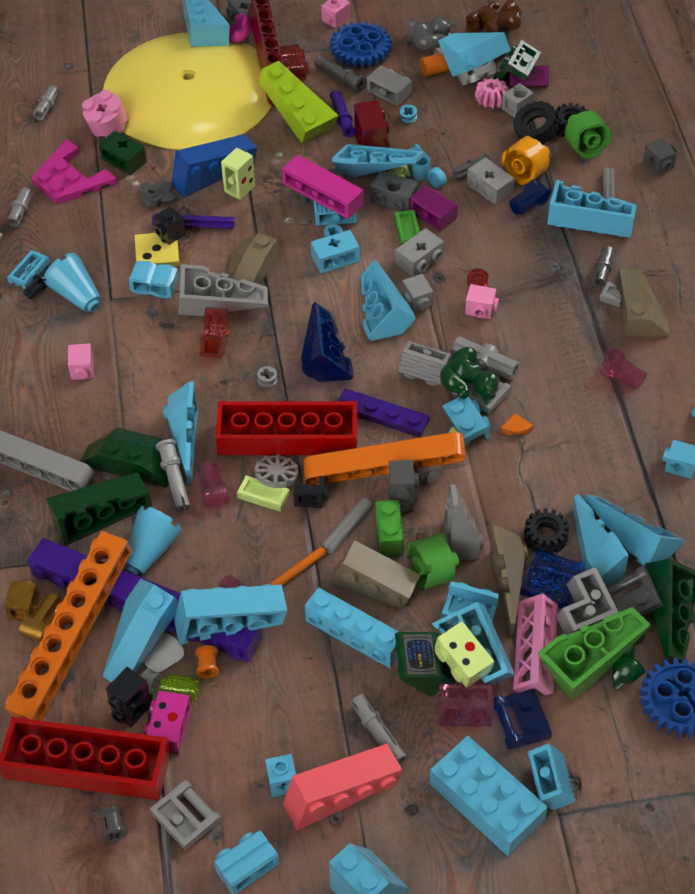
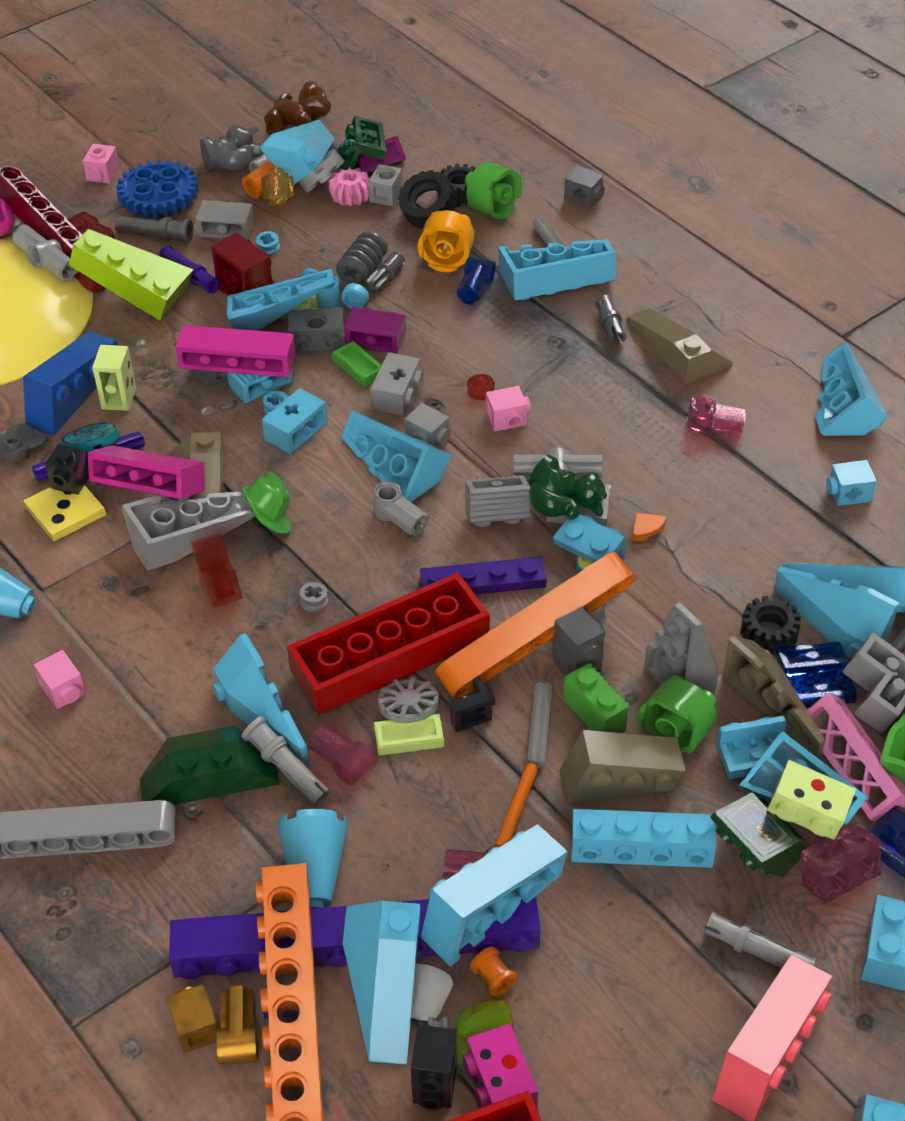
camera: 30 degrees left, 5 degrees down
(97, 506) = (212, 848): dark green wedge -> none
(153, 279) = (87, 542): medium azure brick -> none
(204, 208) = (92, 435): none -> teal tile
(214, 247) = (146, 471): none -> dark pink brick
(251, 64) = (44, 252): none -> light grey piece
(278, 302) = (269, 502): none -> bright green piece
(280, 771) = (692, 1063): medium azure brick -> none
(322, 350) = (362, 537): clear blue wedge -> none
(358, 341) = (392, 506): none -> light grey piece
(439, 74) = (277, 187): none -> clear yellow head
(460, 150) = (361, 258): none -> dark grey piece
(490, 181) = (419, 278): light grey brick -> none
(611, 295) = (640, 347): light grey tile -> none

